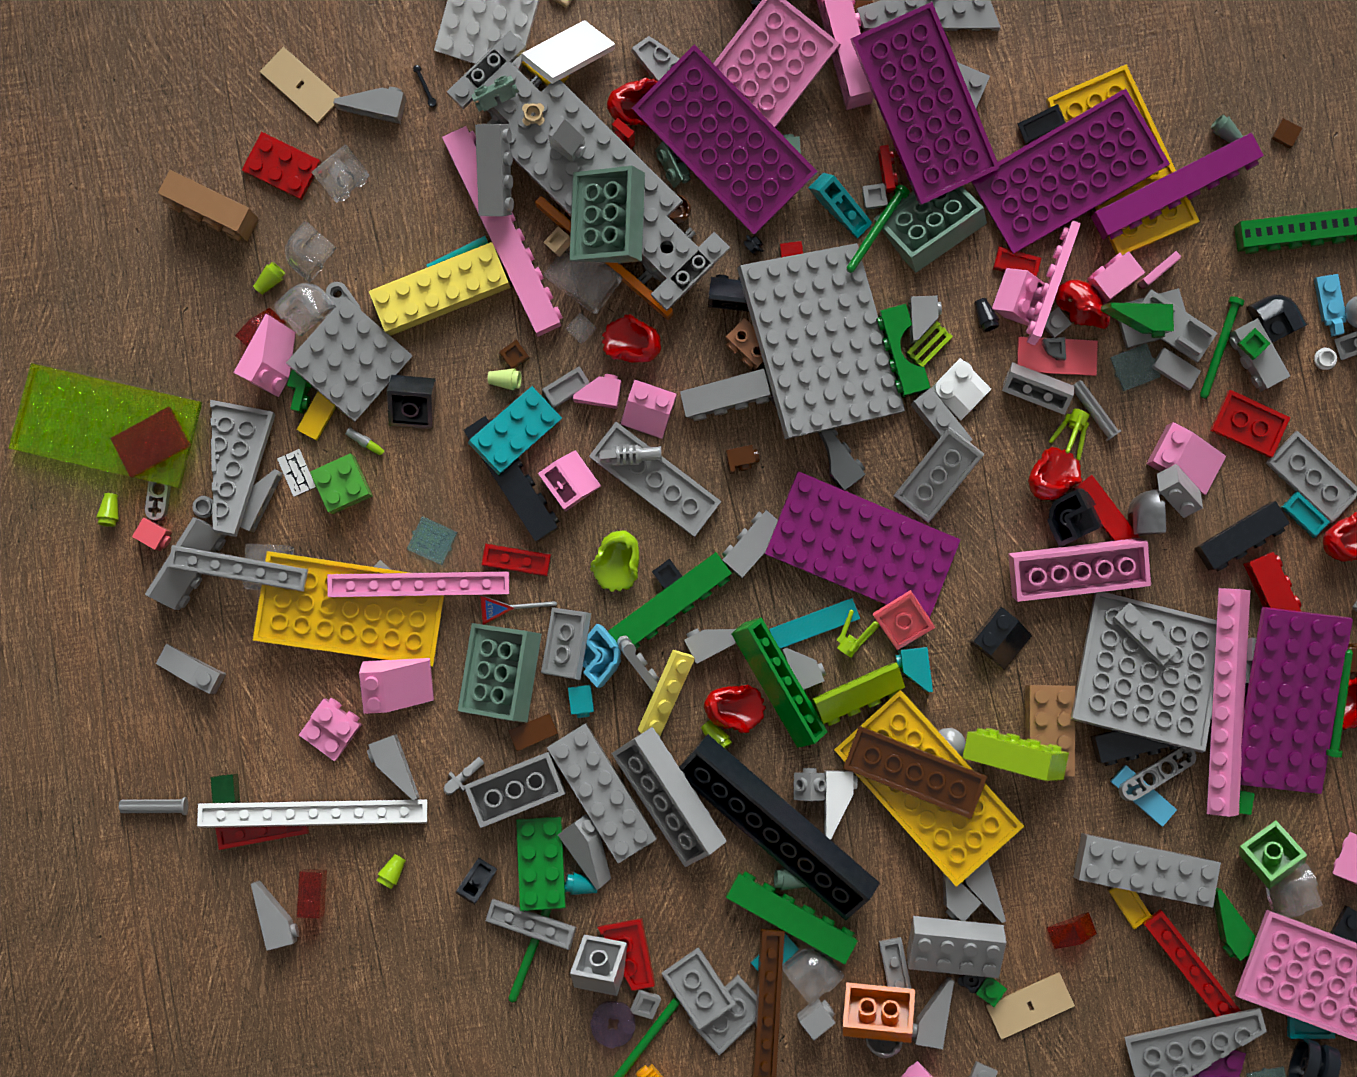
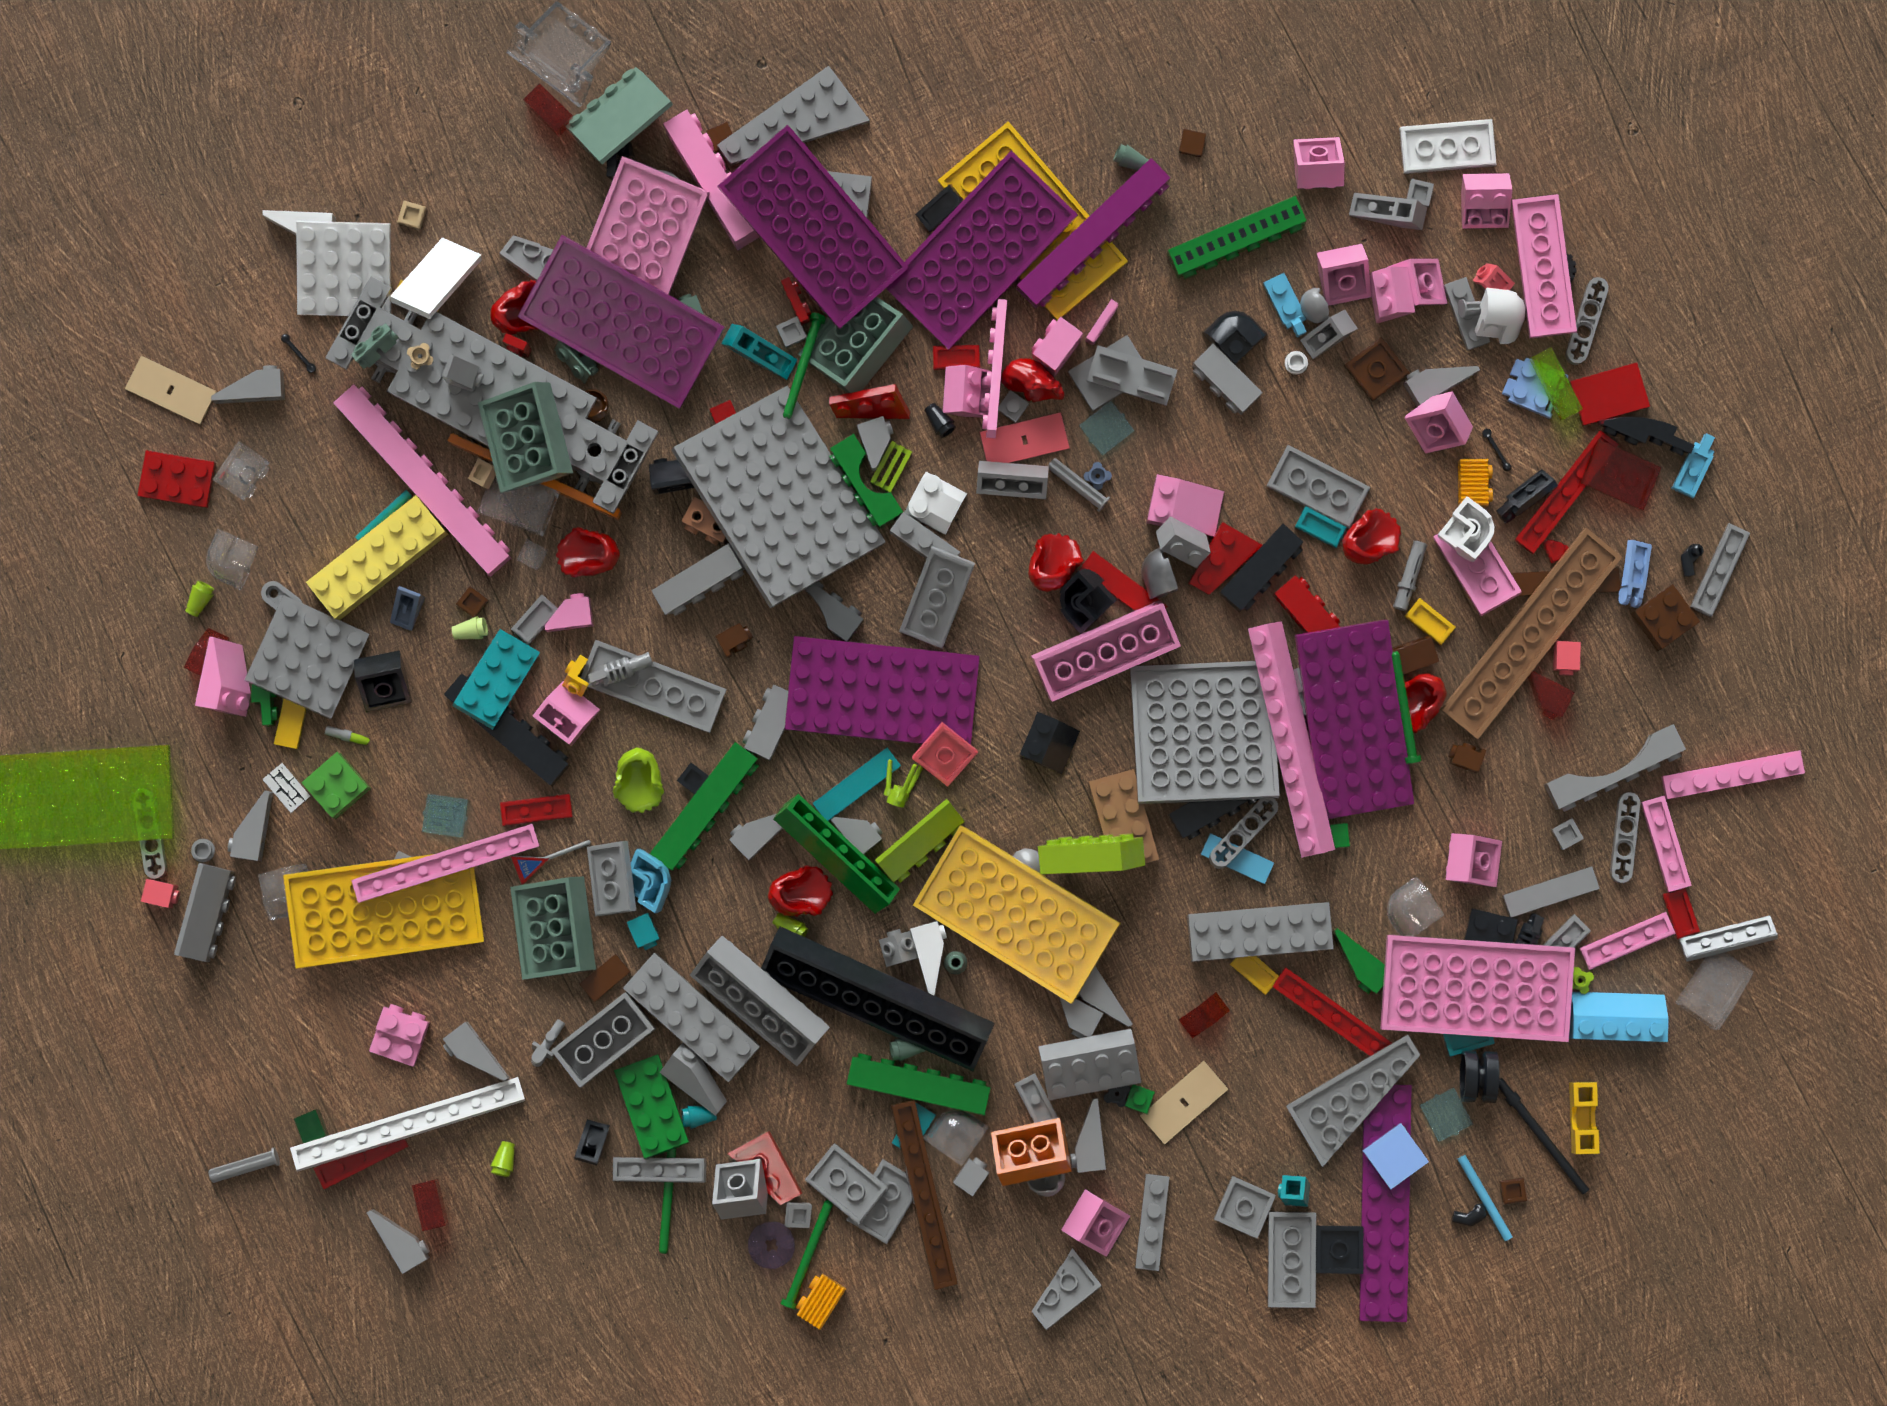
camera: 15 degrees left, 0 degrees up
(108, 510) = (107, 883): lime cone -> none
(150, 442) = (131, 800): clear red tile -> none
(191, 669) = (239, 1017): light grey slope -> none
(207, 205) = (116, 543): medium nougat brick -> none
(236, 453) = (221, 784): light grey wing -> none
(238, 568) = (259, 900): light grey tile -> none
(304, 307) = (244, 617): clear brick -> none
(395, 684) = (452, 970): bright pink slope -> none
(453, 342) = (406, 608): none -> sand blue slope
(494, 169) = (397, 423): light grey brick -> none
(584, 454) = (572, 681): none -> yellow bracket
(638, 662) = (690, 876): light grey plate -> none
(648, 409) = (625, 617): bright pink slope -> none
(666, 692) = (727, 896): light yellow plate -> none
(754, 244) = (682, 417): black plate -> none
(853, 809) = (955, 970): none -> sand green cone
(915, 772) = (997, 902): reddish brown plate -> none
(916, 666) = (970, 797): teal slope -> none
(928, 281) = (871, 403): none -> red wing
(1055, 347) = (1019, 432): dark grey tile -> none
(1078, 422) = (1062, 501): lime plant -> none
(1121, 408) = (1097, 482): none -> sand blue plate
(1143, 317) = (1094, 379): green slope -> none
(1145, 634) = (1189, 696): light grey plate -> none
(1176, 369) = (1147, 418): light grey tile -> none
(1217, 513) = (1228, 552): none -> red wing
(1220, 347) = (1188, 333): green bar -> none
(1250, 423) = (1238, 451): red plate -> none
(1253, 343) = (1214, 371): green plate -> none
(1272, 854) = (1379, 878): bright green brick -> none

